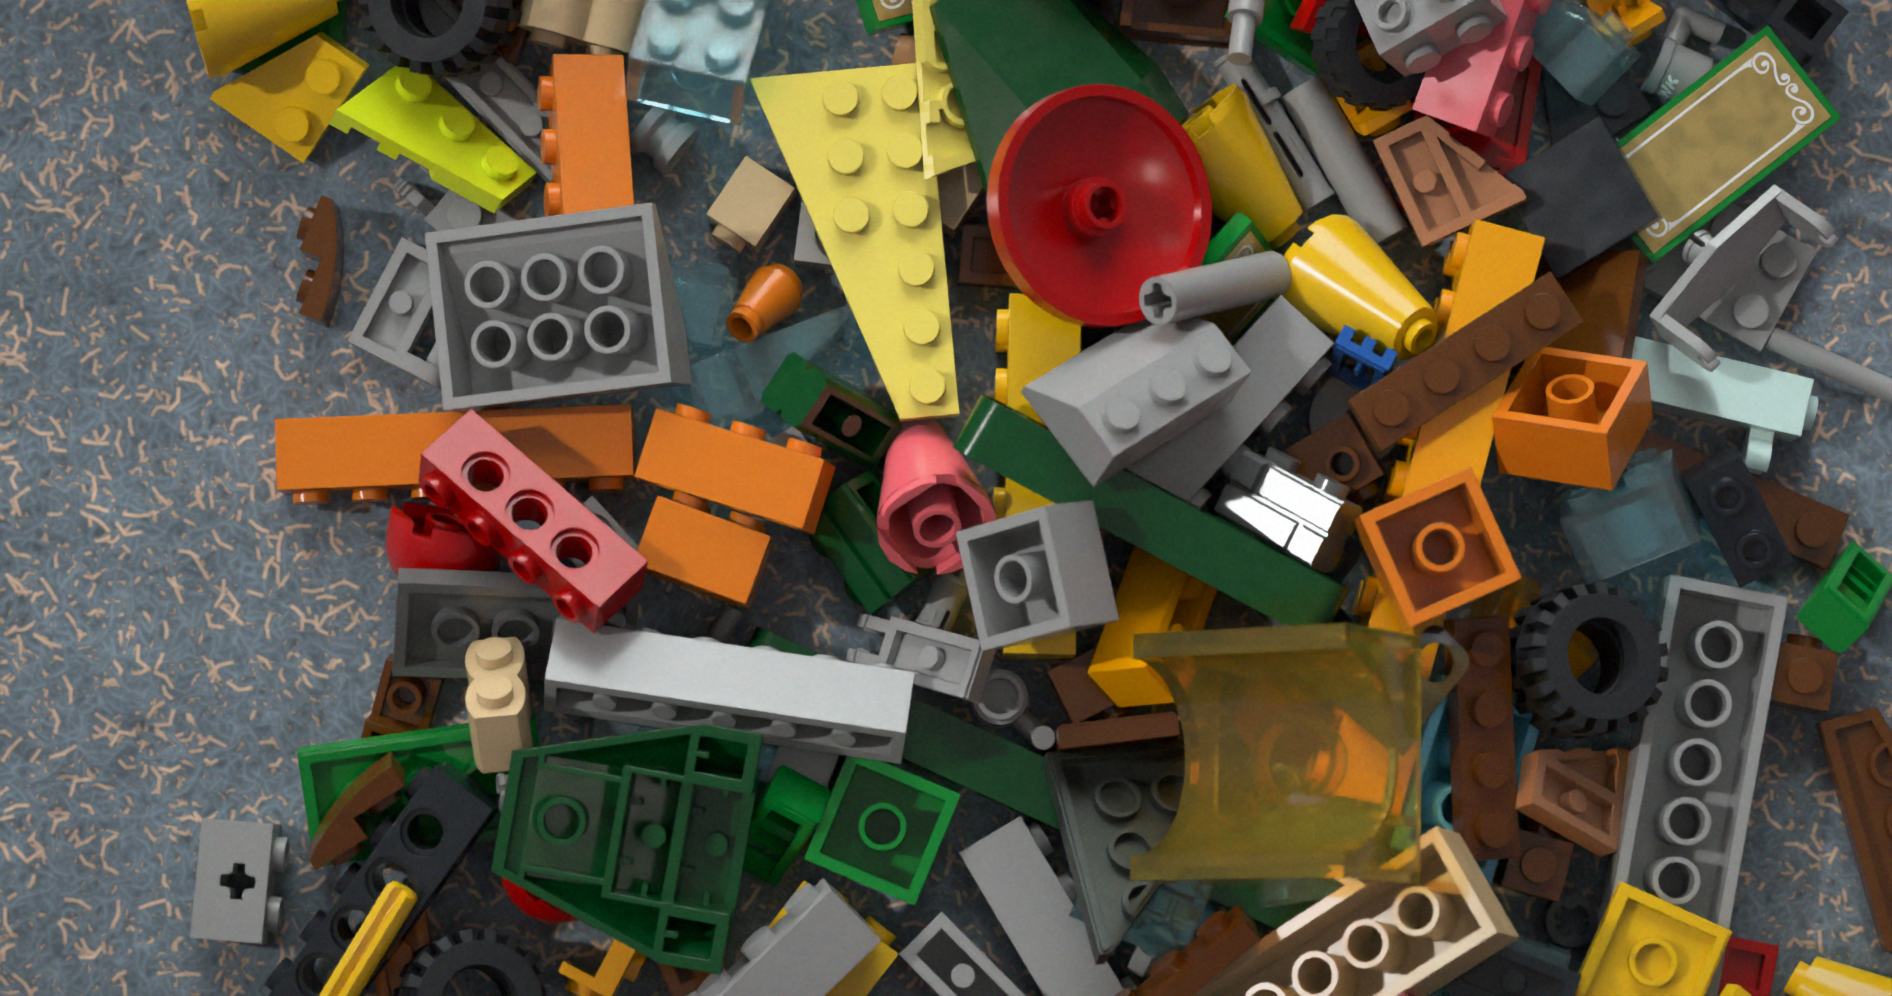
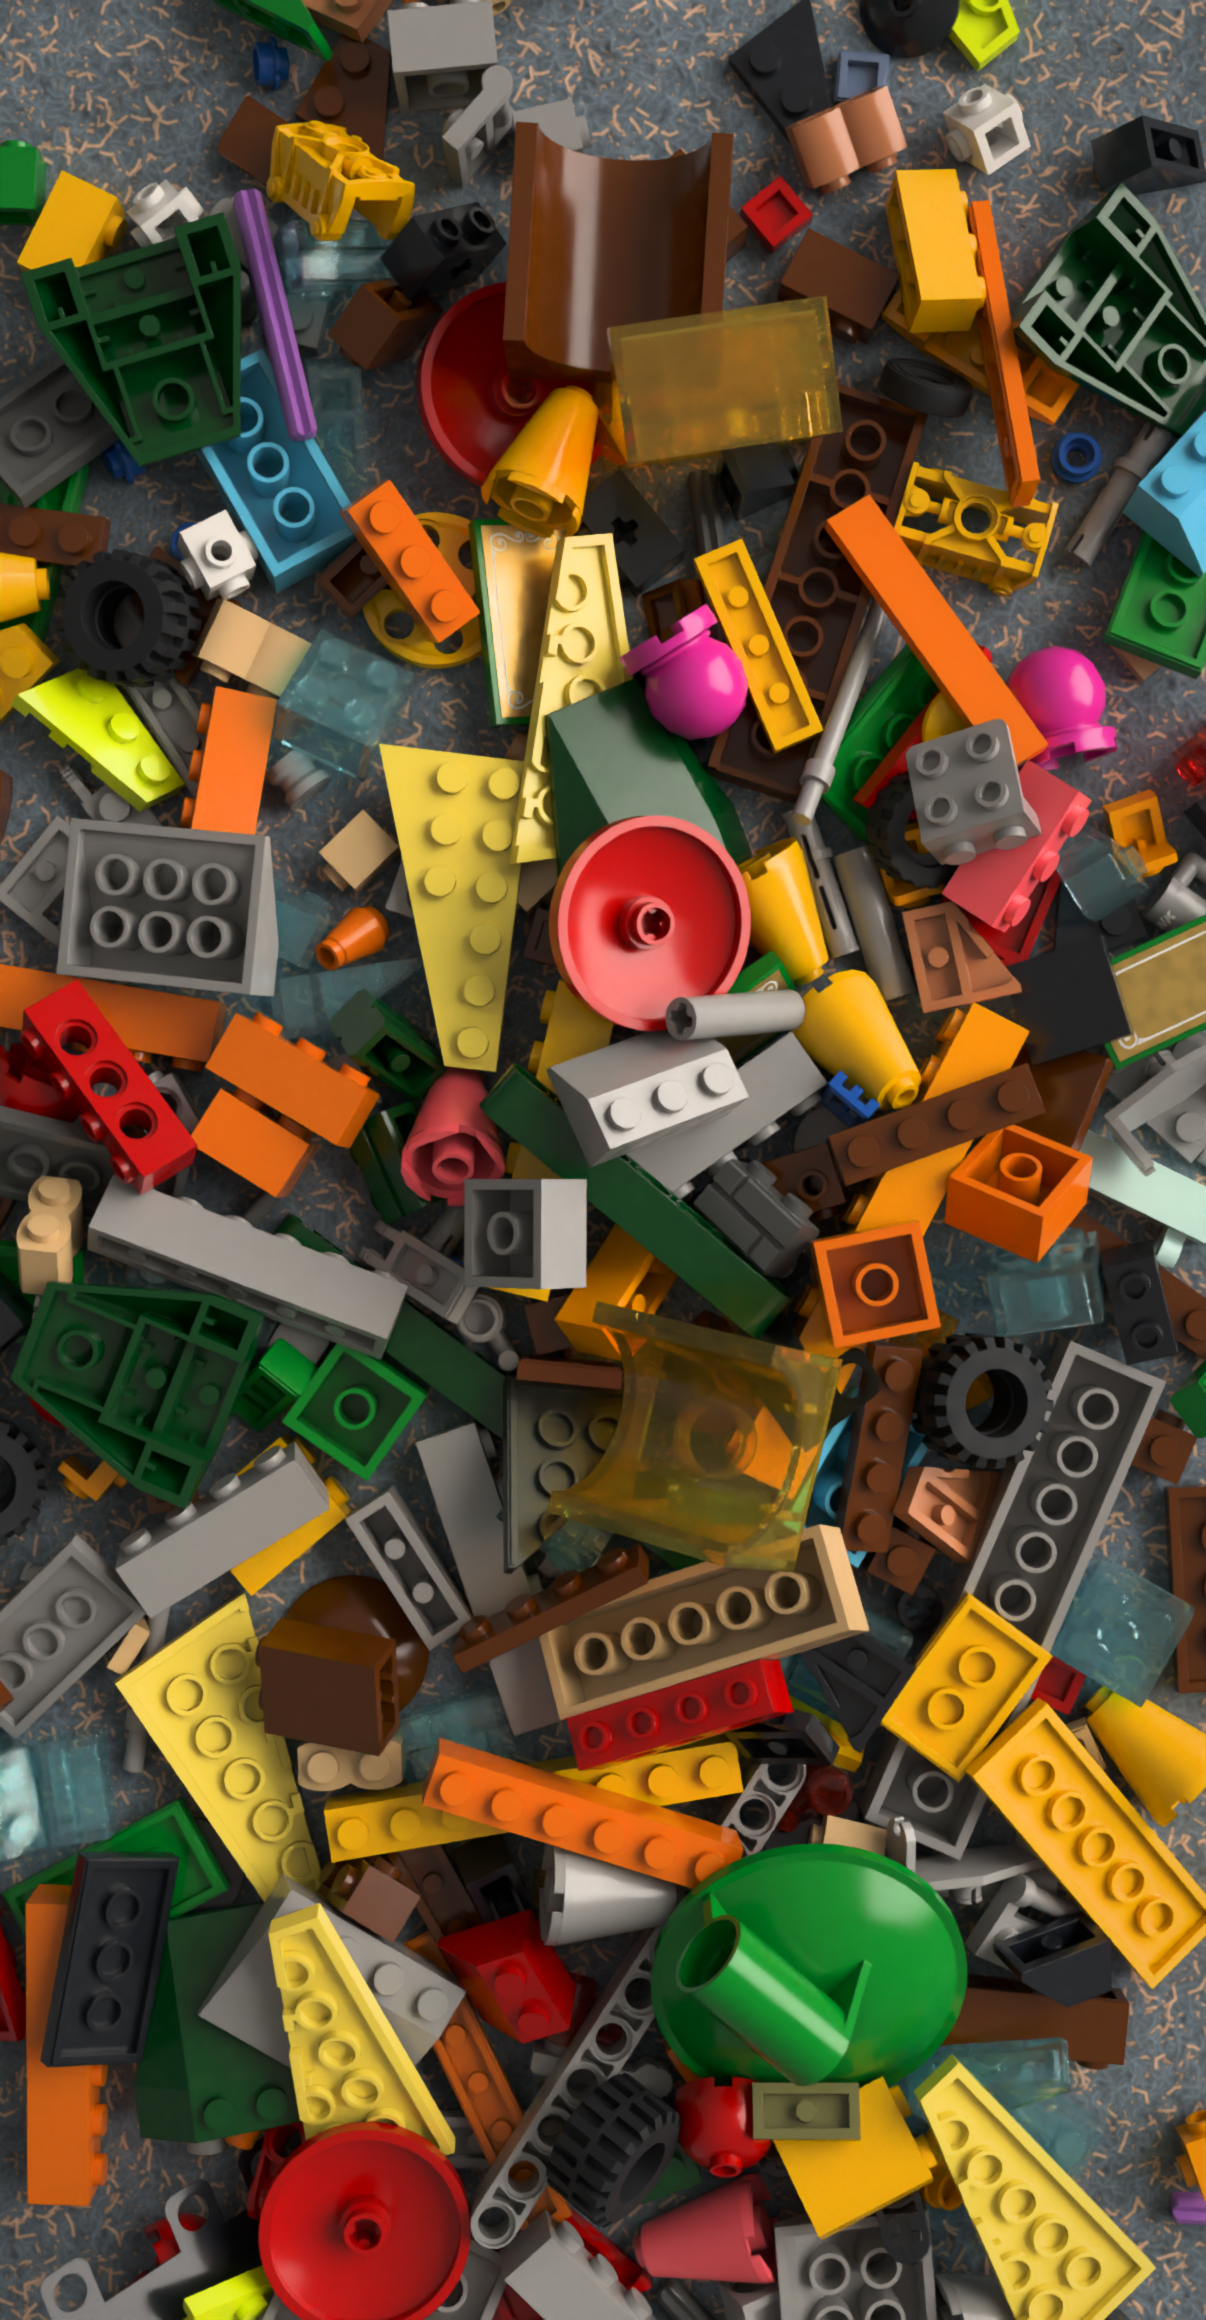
camera: 15 degrees right, 5 degrees up
(1804, 891) = (1122, 1630): none -> clear light blue brick

